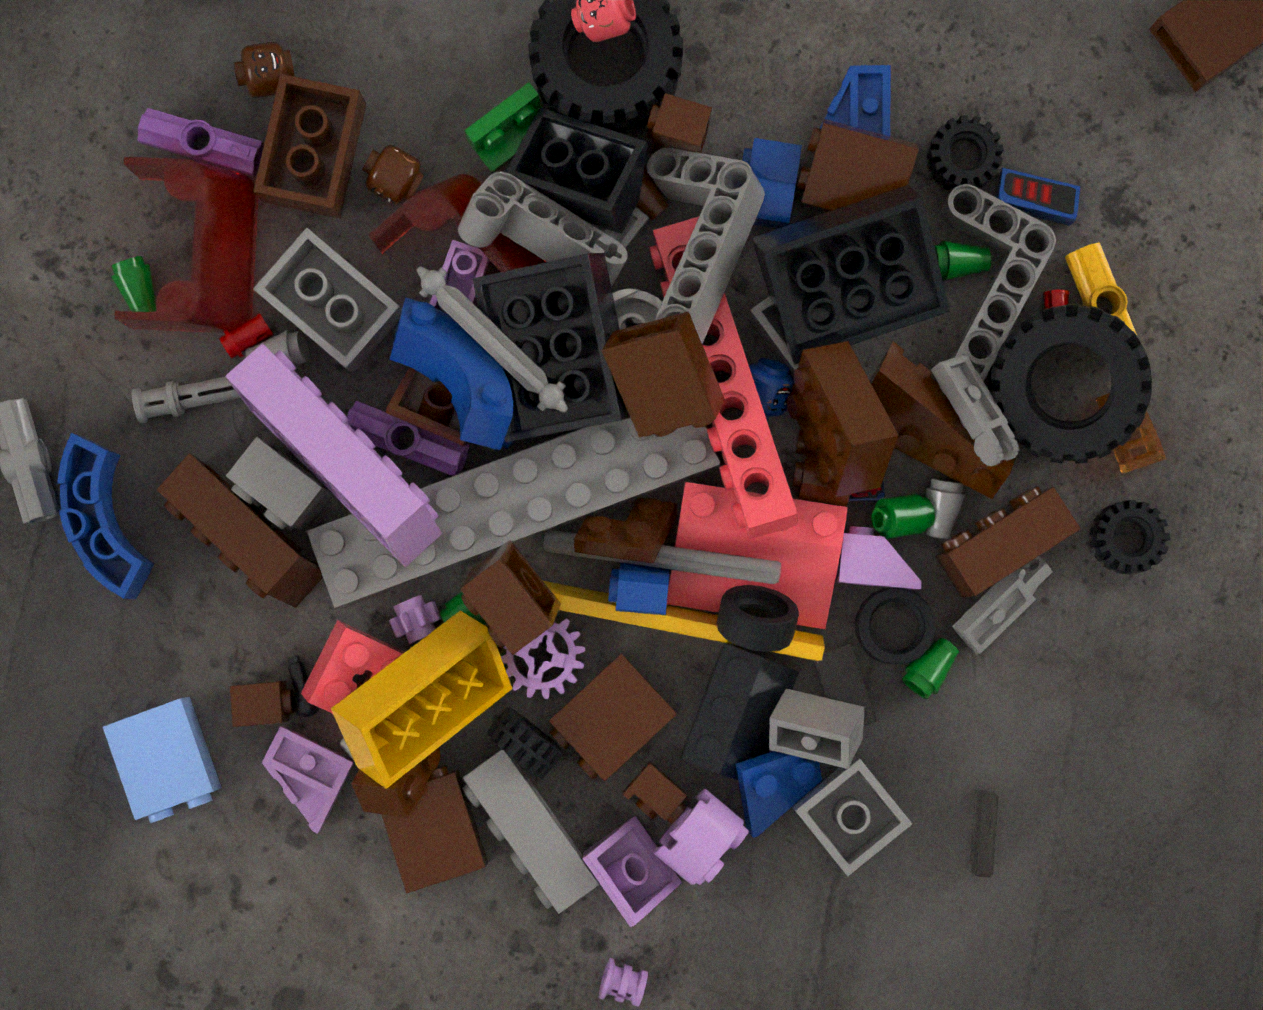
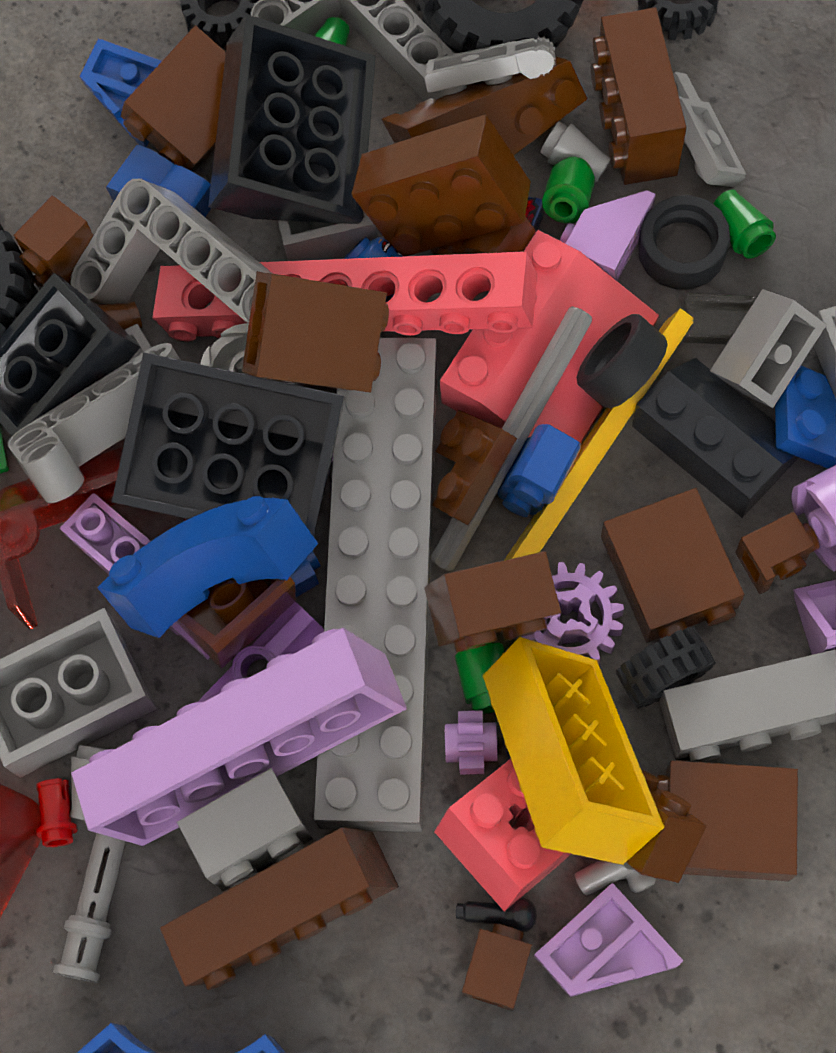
camera: 60 degrees left, 15 degrees down
(492, 339) = (189, 503): light grey wheel -> none

